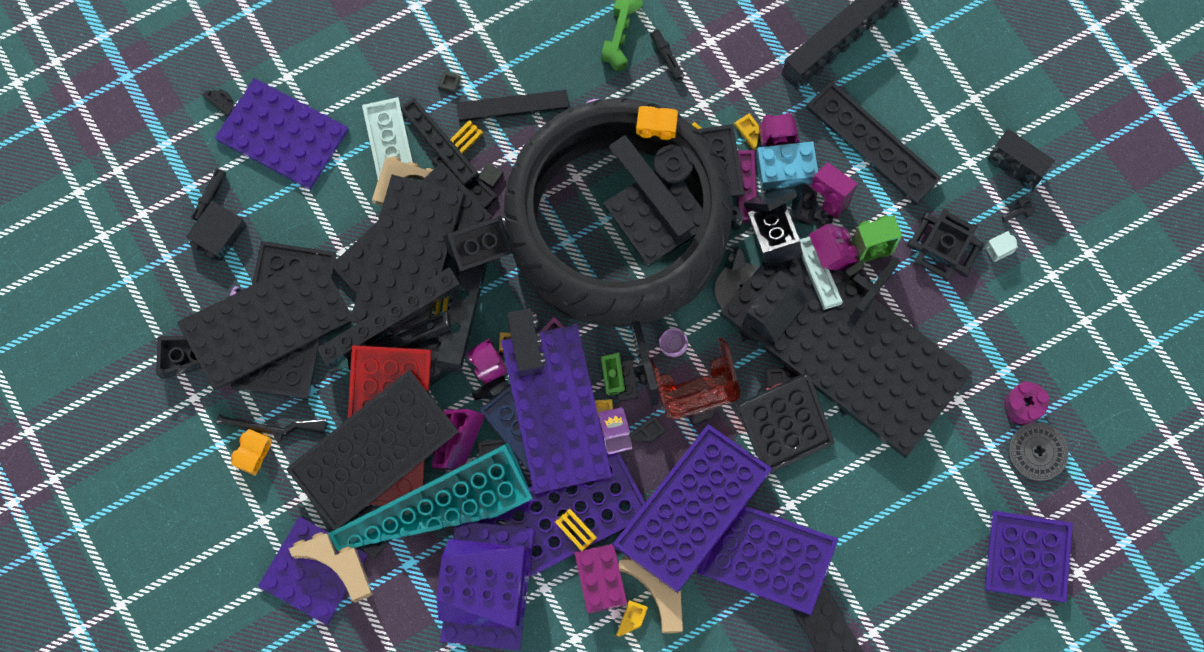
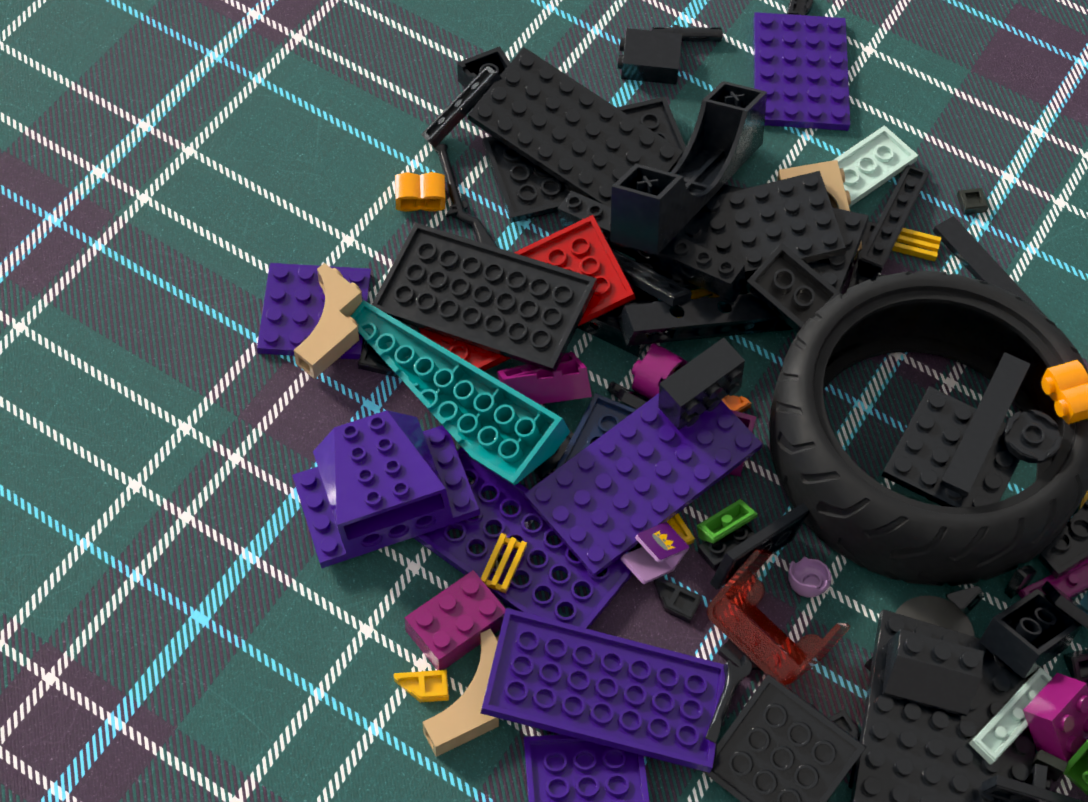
camera: 60 degrees right, 15 degrees down
(197, 389) = (460, 106): none -> black tile
(370, 290) = (655, 204): none -> black arch
(719, 425) = (733, 677): none -> black piece

